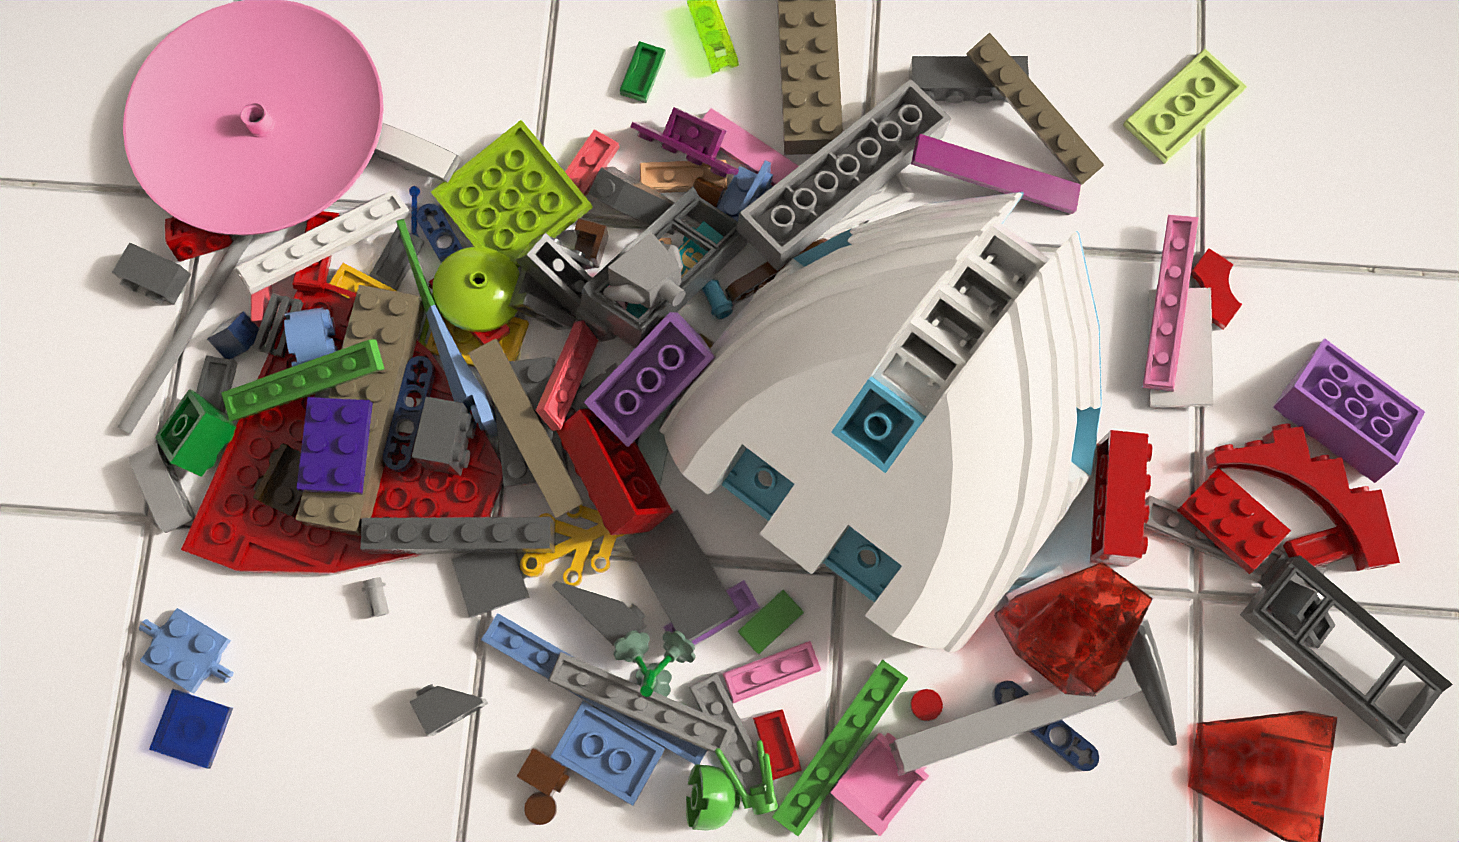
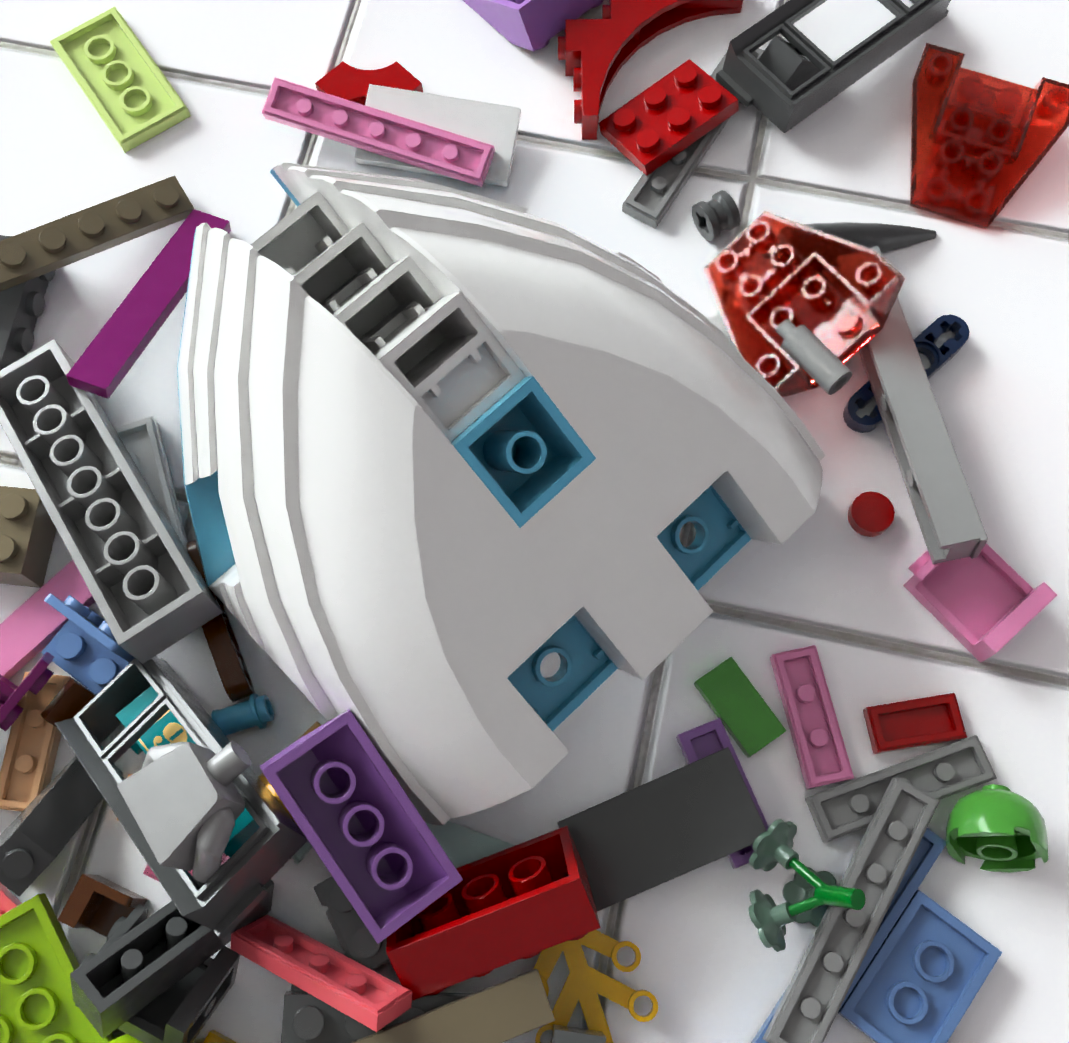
camera: 85 degrees left, 5 degrees down
(606, 614) = (710, 956): dark grey slope -> none
(762, 795) = (998, 749): bright green plant -> none
(840, 748) = (928, 637): bright green plate -> none
(1030, 642) = (813, 357): none -> light grey cylinder
(1120, 498) = (650, 226): red brick -> none
(1151, 567) = (716, 215): none -> dark grey wheel
(1321, 547) = (711, 36): red tile -> none

